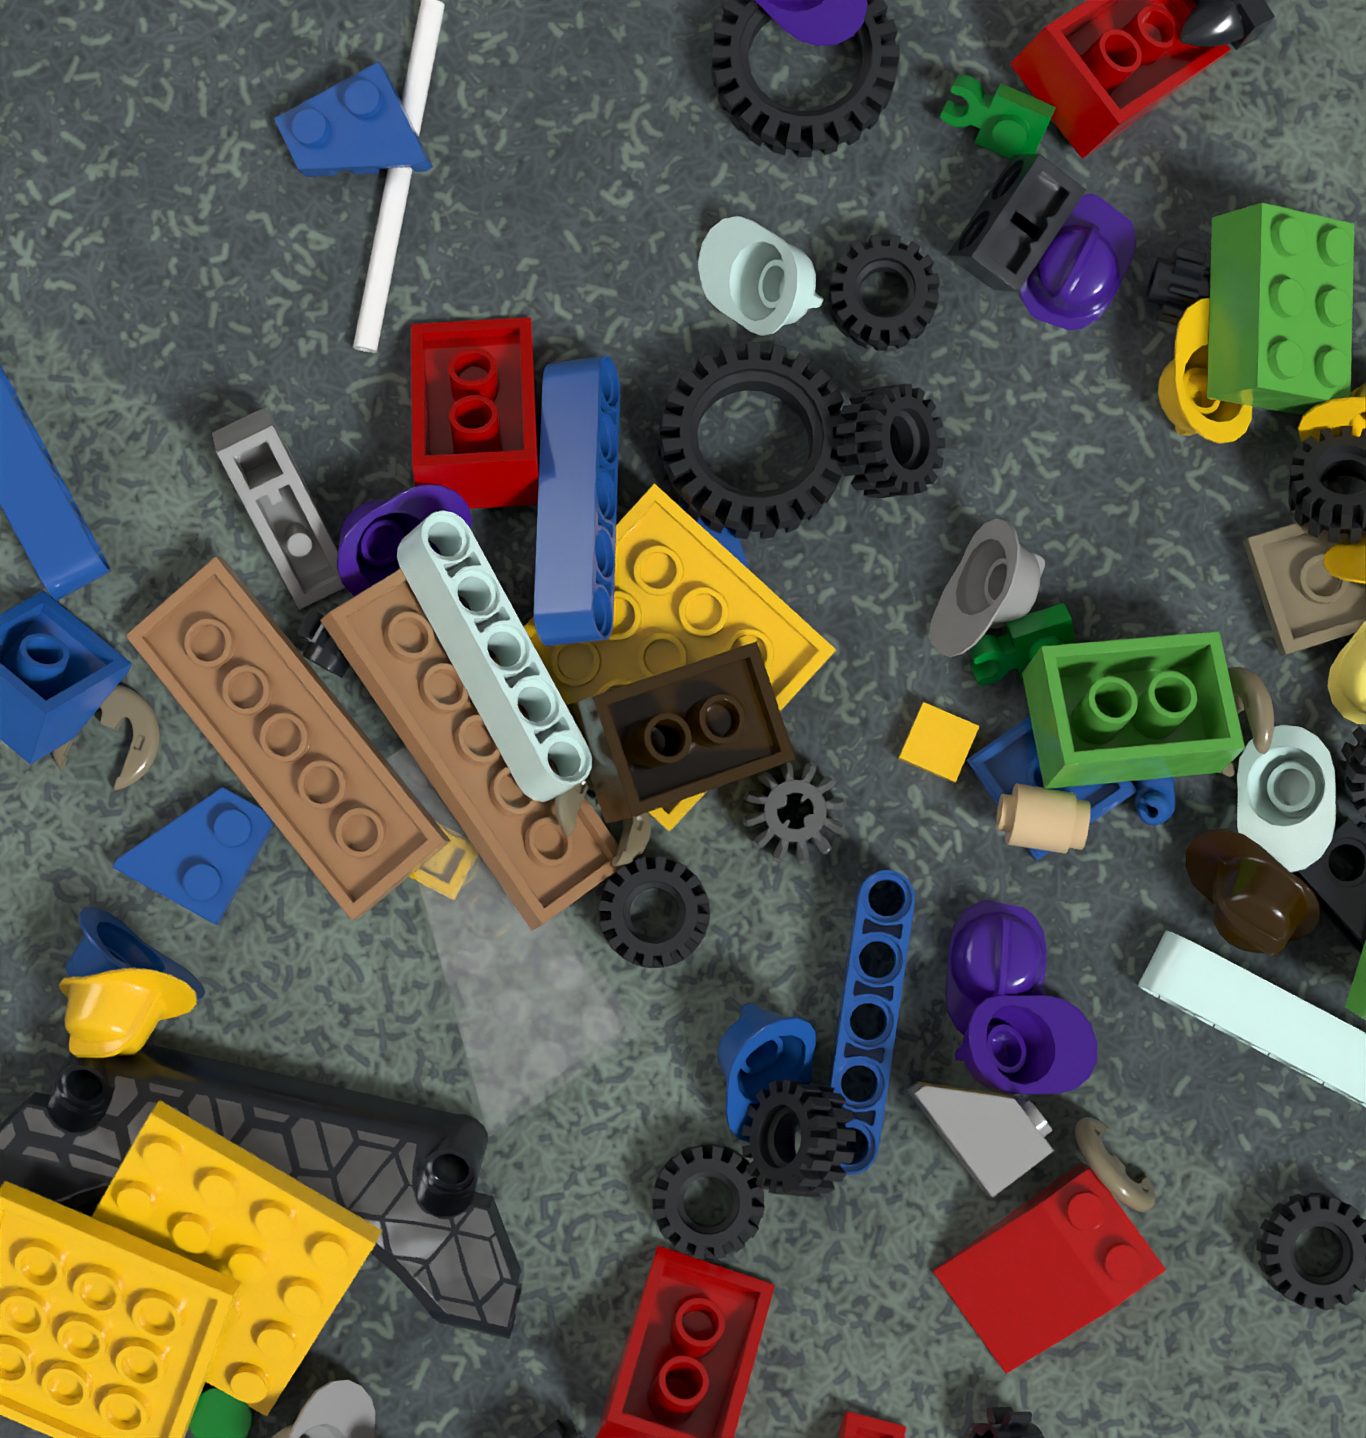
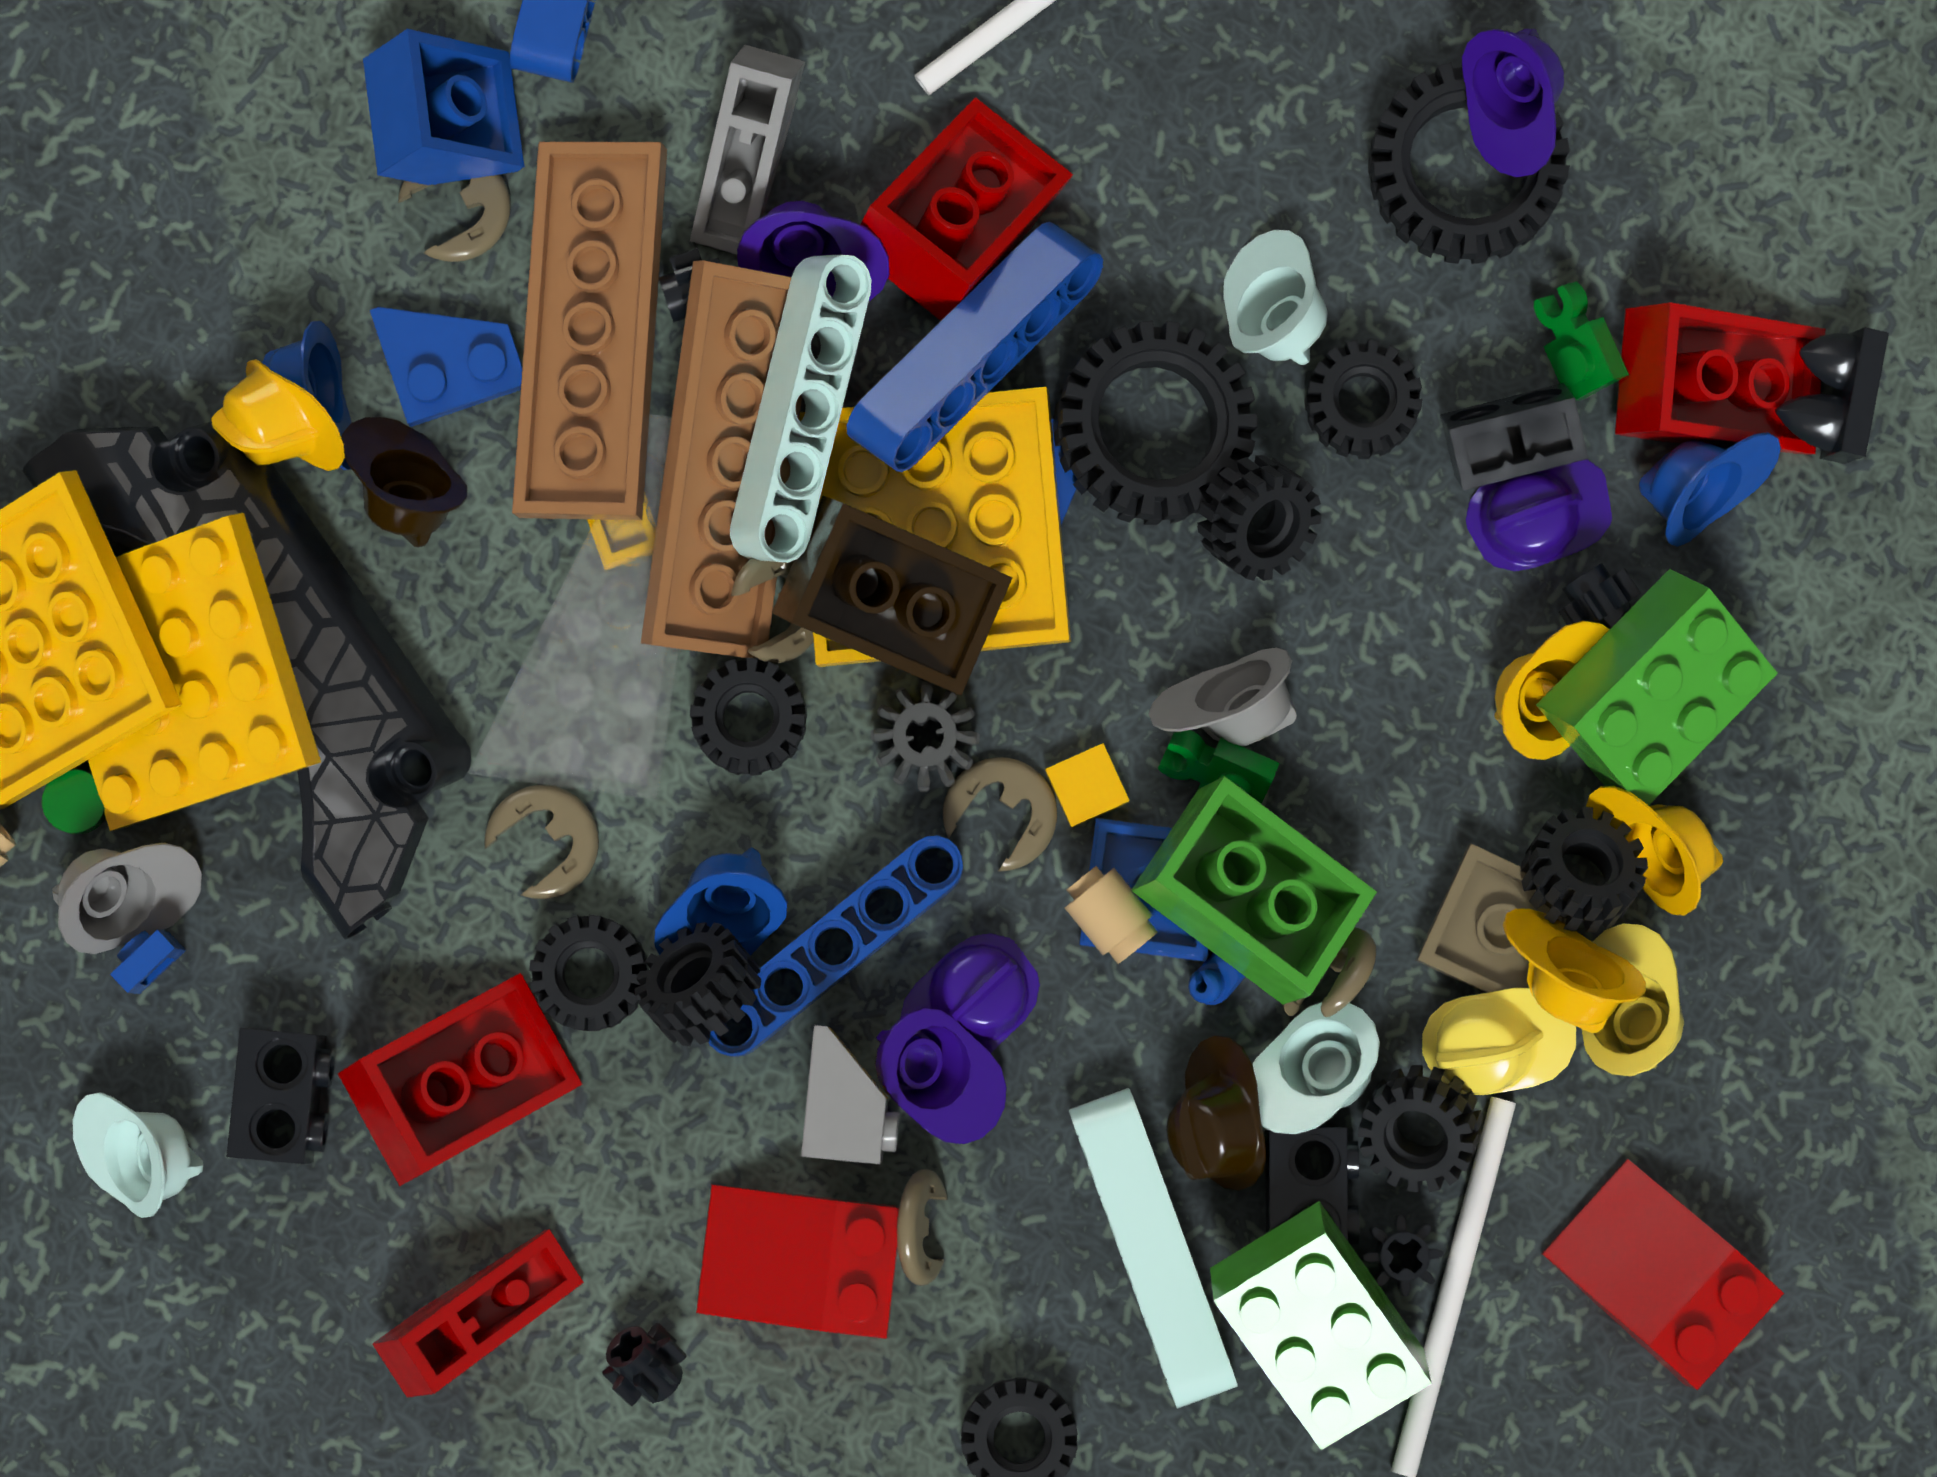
camera: 45 degrees right, 0 degrees up
(248, 965) = (403, 478): none -> dark brown piece
(591, 1101) = (569, 819): none -> dark tan head
(889, 784) = (1019, 784): none -> dark tan head
(1173, 136) = (1705, 482): none -> blue piece

